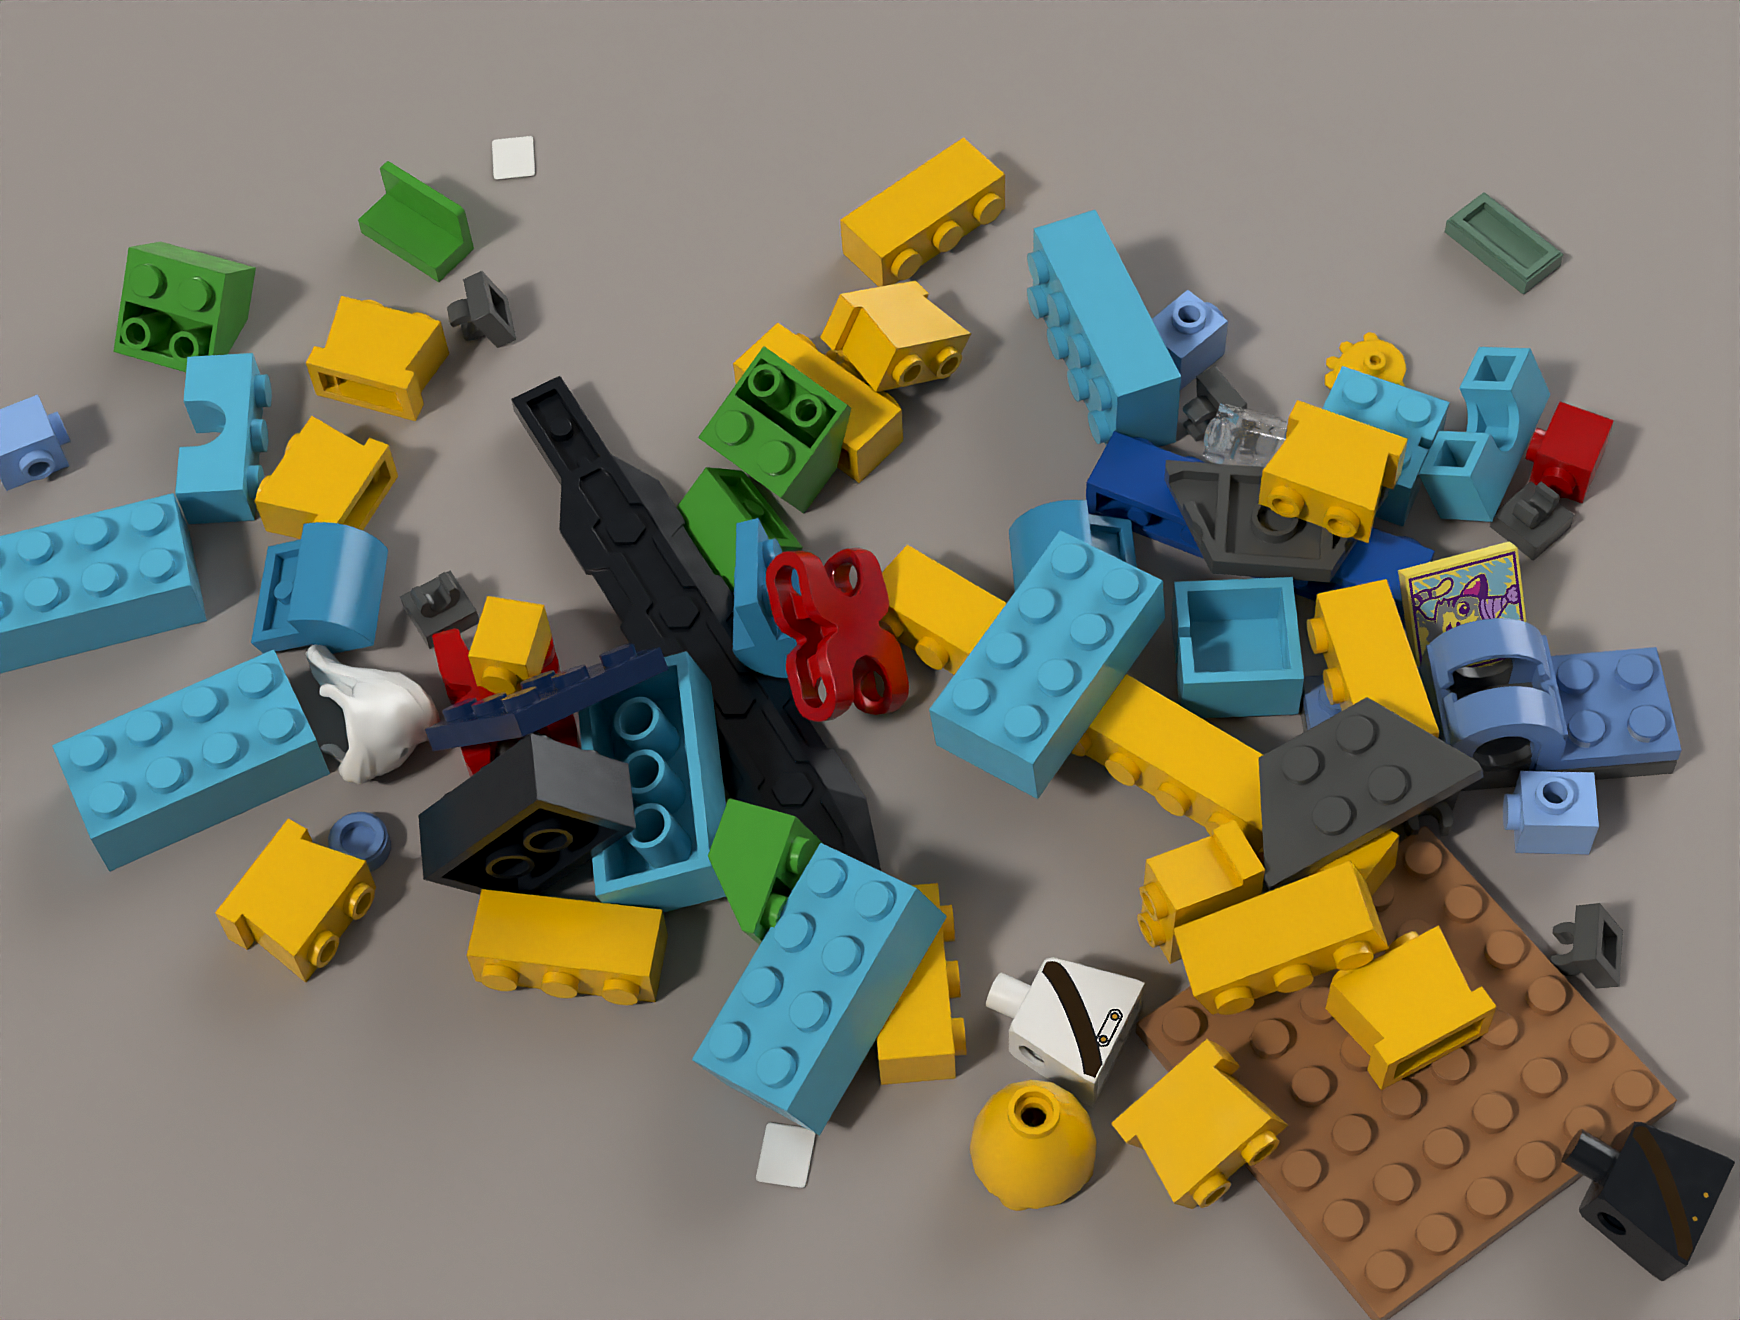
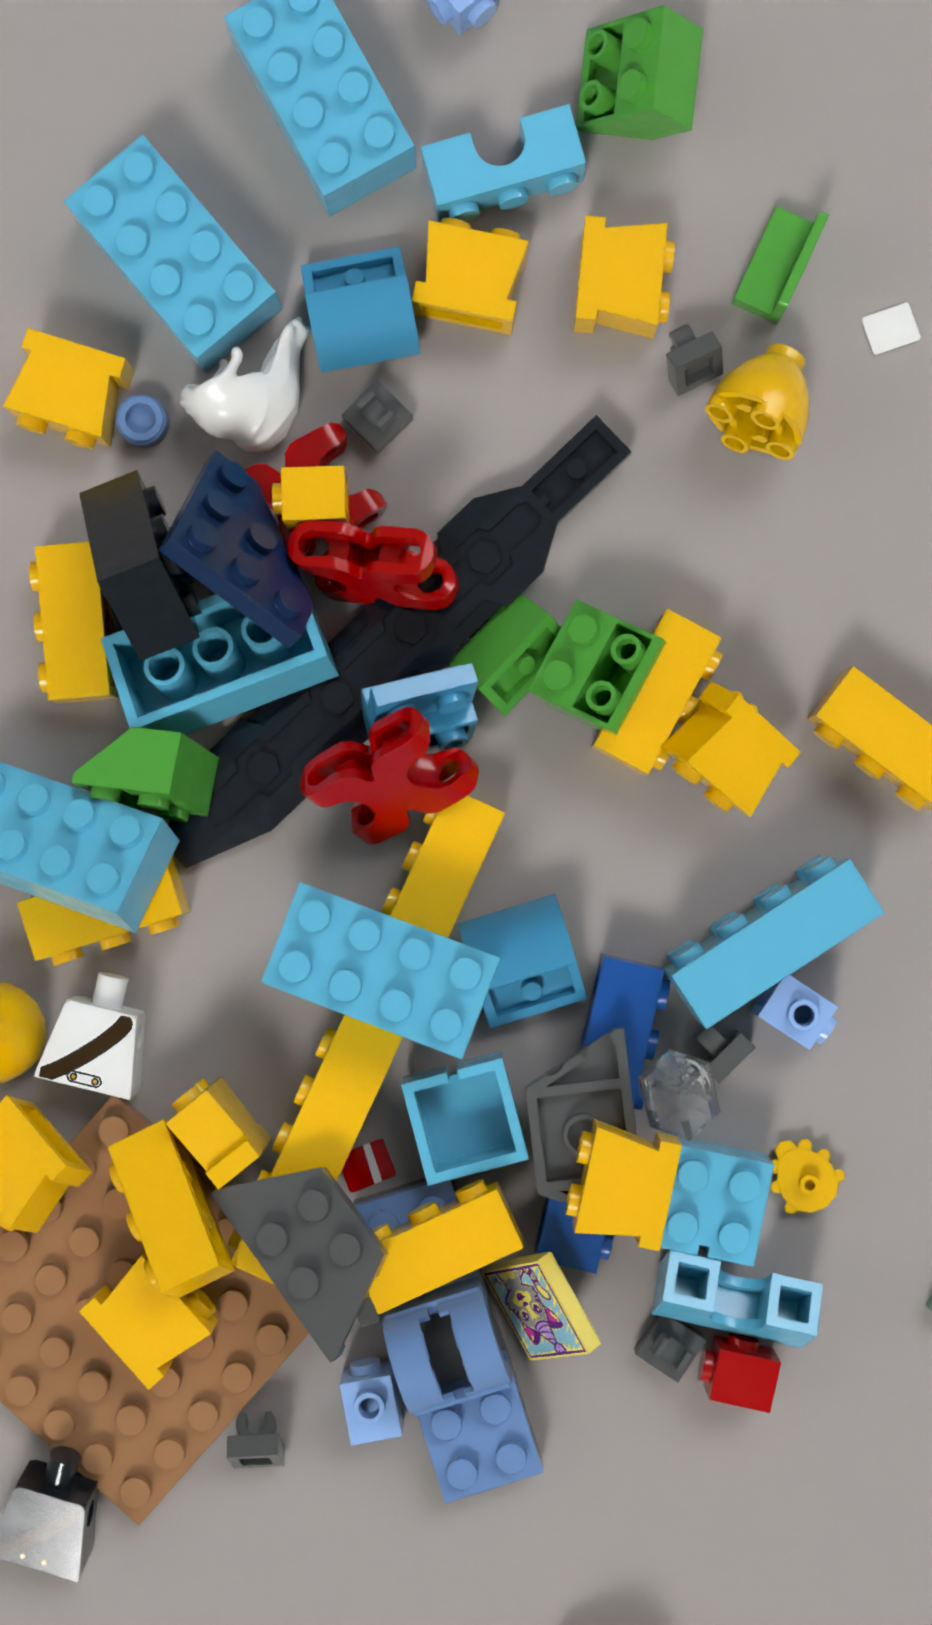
camera: 75 degrees right, 30 degrees up
(555, 254) = (763, 404): none -> yellow piece
(601, 596) = (374, 564): none -> red piece

